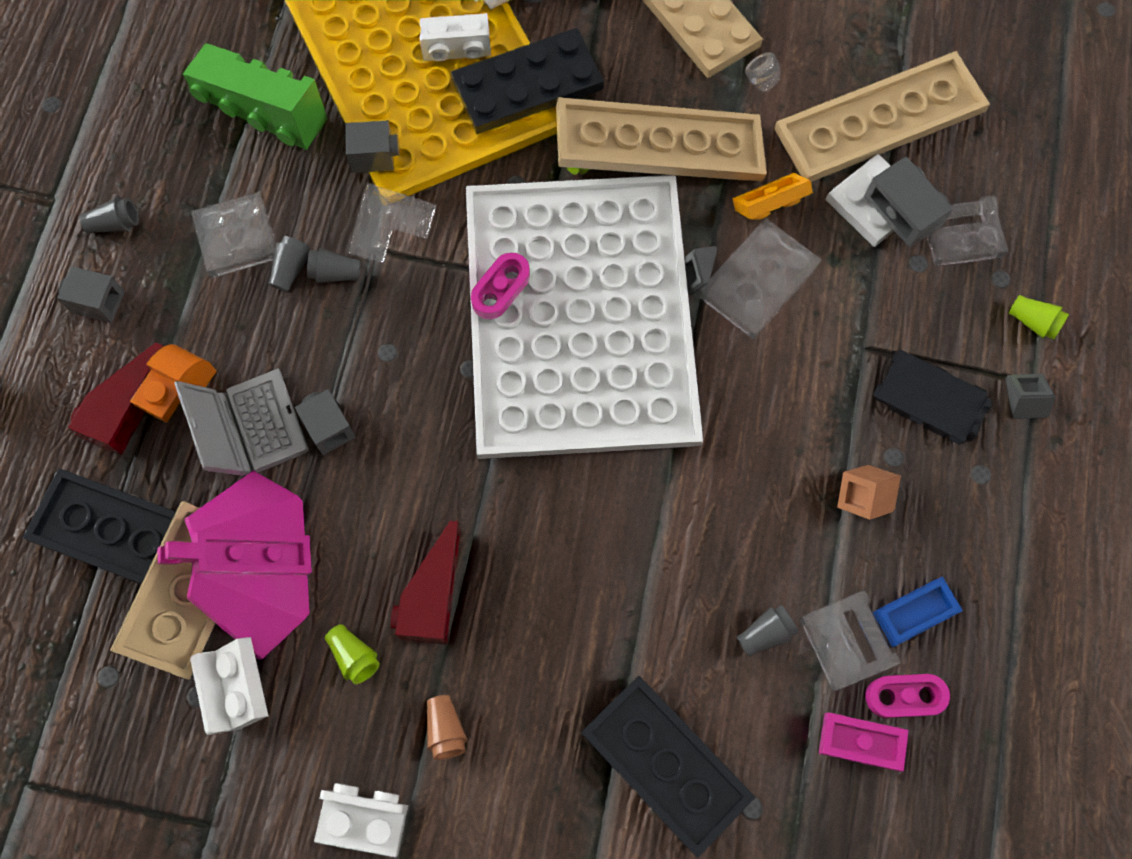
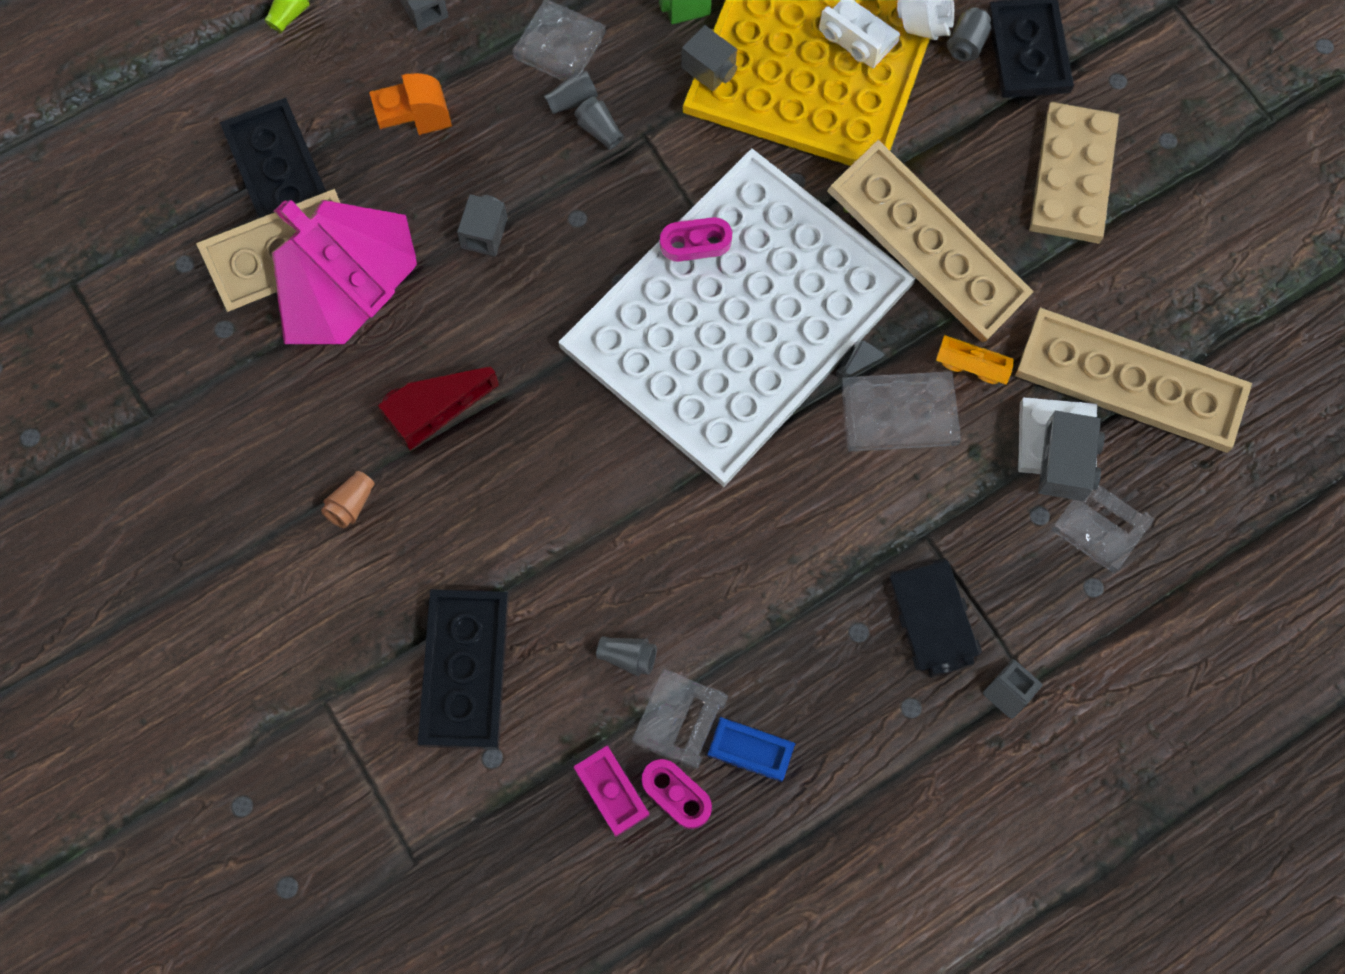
camera: 45 degrees right, 0 degrees up
(106, 412) = (348, 87): dark red slope -> none
(229, 687) = (244, 338): white bracket -> none
(245, 426) = (424, 177): light grey piece -> none
(352, 655) = (340, 398): lime cone -> none
(361, 821) = (238, 507): white bracket -> none
(383, 212) = (671, 115): clear plate -> none
(526, 80) = (878, 108): black plate -> none
(763, 68) = (1075, 259): clear tile -> none
(868, 491) = (807, 633): nougat panel -> none
(1039, 316) = (1086, 640): lime cone -> none

